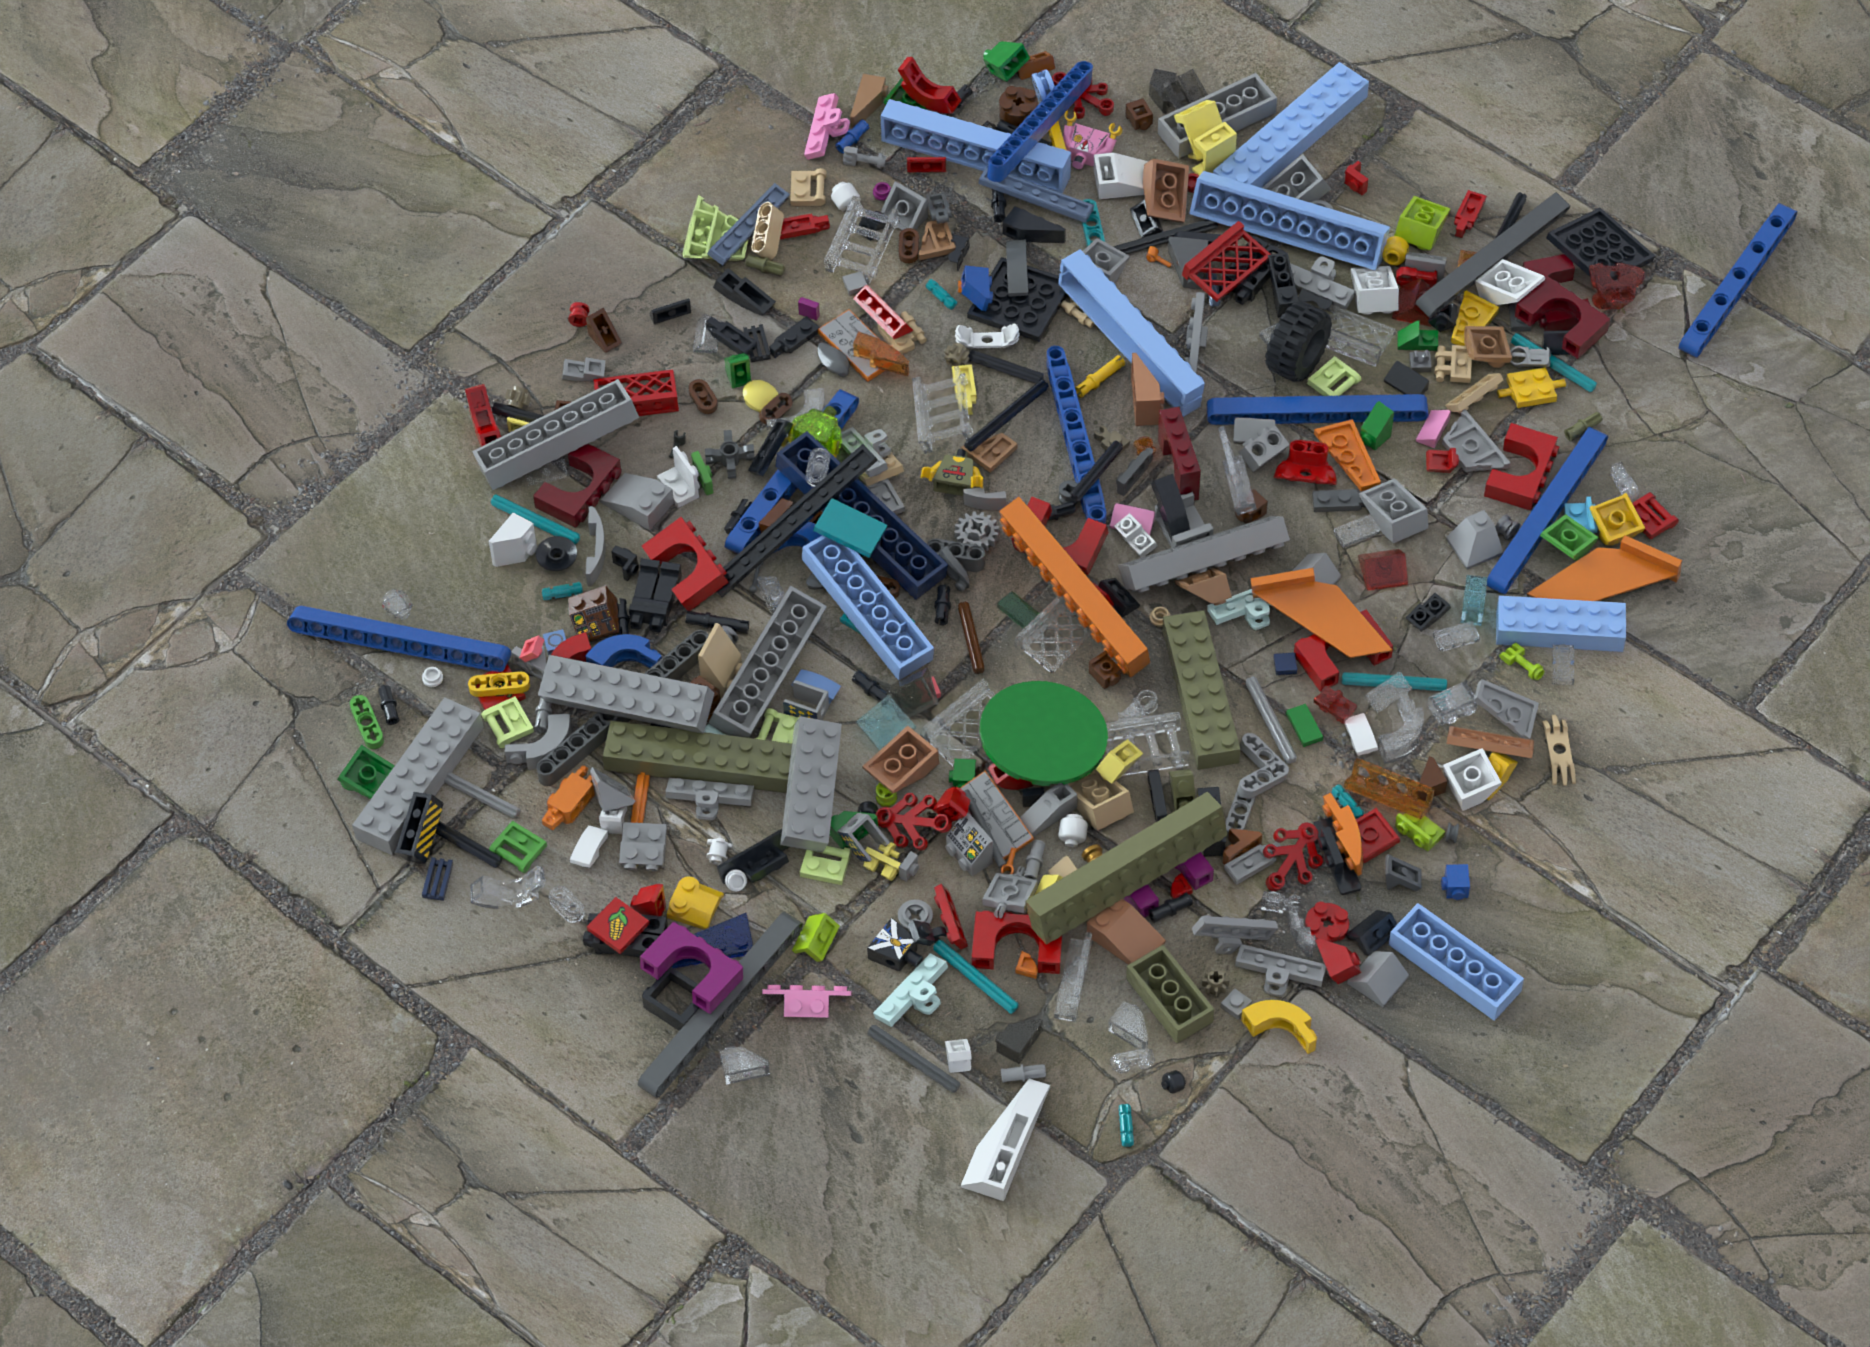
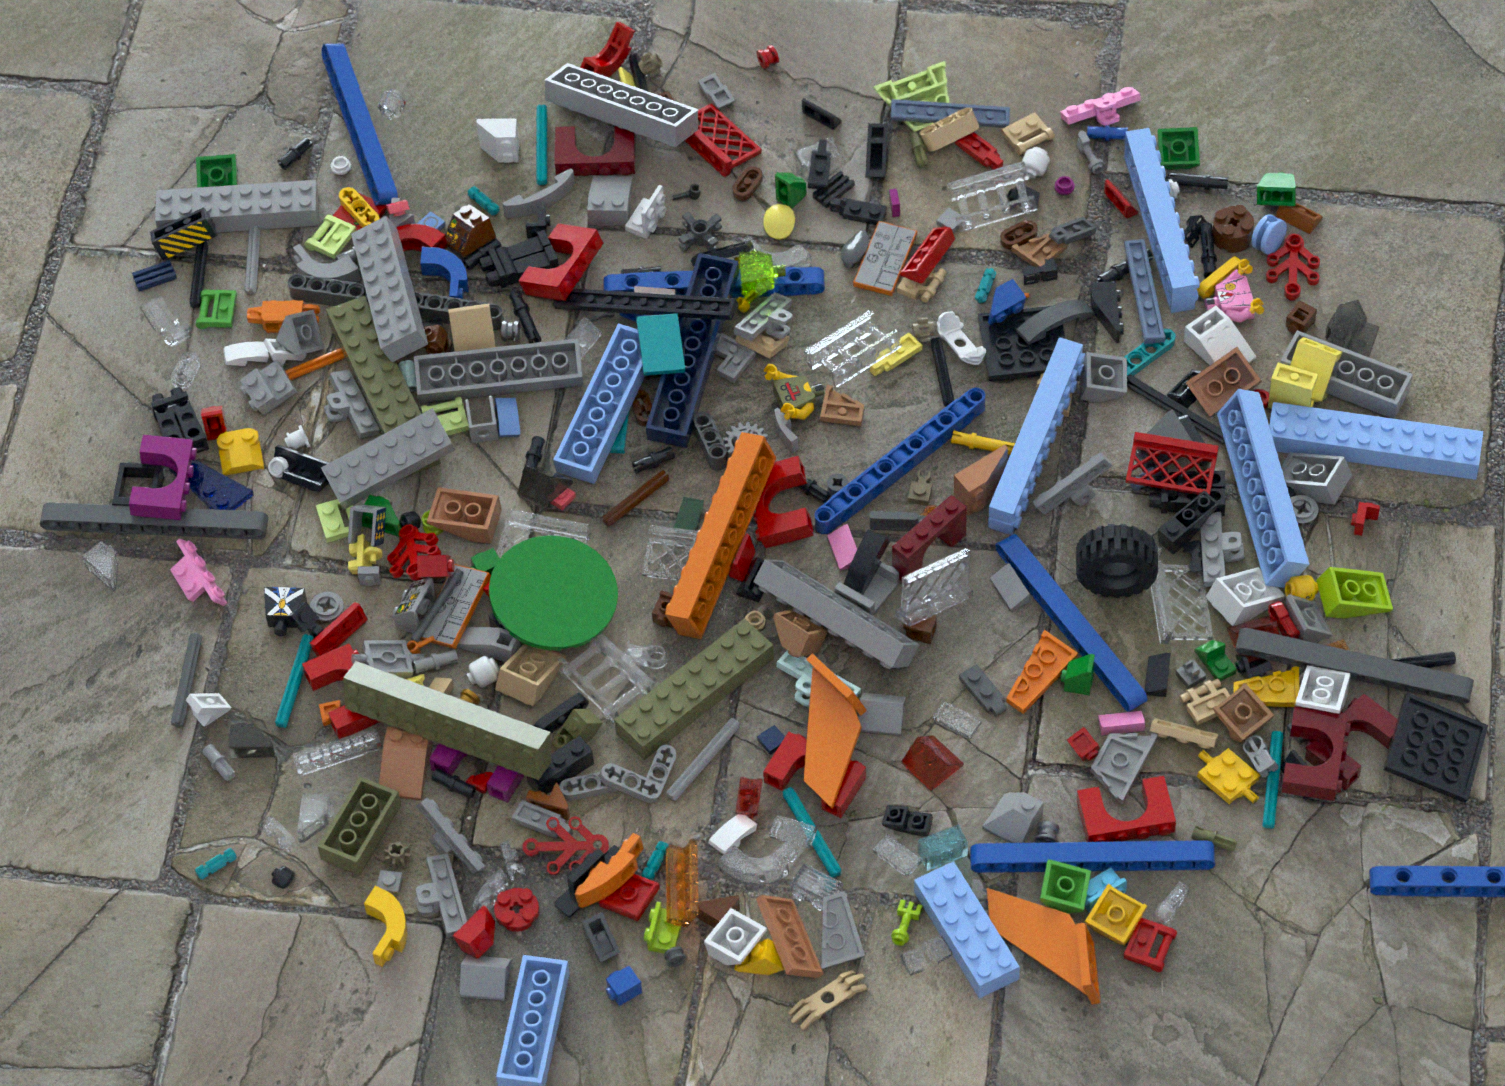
camera: 60 degrees right, 0 degrees up
(367, 714) = (271, 141): bright green beam -> none
(556, 547) = (514, 175): black dish -> none
(602, 330) = (762, 80): reddish brown slope -> none
(618, 925) = (174, 409): red tile -> none
(704, 473) = (667, 225): bright green plate -> none
(772, 405) = (772, 232): reddish brown beam -> none
(815, 468) = (702, 285): clear plate -> none
(816, 936) = (260, 551): lime panel -> none
(868, 98) = (1157, 117): medium nougat slope -> none
(880, 354) = (877, 273): clear orange slope -> none
(884, 722) = (500, 480): clear light blue plate -> none
(911, 206) = (1053, 208): light grey slope -> none
(914, 991) = (250, 645): light aqua plate -> none
(925, 92) = (1189, 148): red arch -> none
(955, 569) = (691, 447): dark grey arm -> none
(1004, 1144) = (143, 786): white wedge -> none
(1006, 415) = (883, 397): black axle -> none
(1039, 121) = (1210, 243): blue beam -> none
(1096, 471) = (865, 489): black axle -> none
(1118, 761) = (565, 662): light yellow slope -> none
(1135, 535) = (828, 558): white slope -> none
(1152, 256) = (1151, 412): orange hand -> none
(1263, 447) = (990, 607): light grey brick -> none
(1304, 725) = (716, 787): green tile -> none
(1307, 457) = (1009, 642): red piece -> none
(1330, 374) = (1116, 611): yellowish green plate -> none
(1373, 931) = (524, 943): black panel -> none
(1395, 510) = (998, 736): light grey slope -> none
(1468, 212) = (1396, 624): red hinge -> none
(1612, 290) = (1410, 786): clear red piece -> none

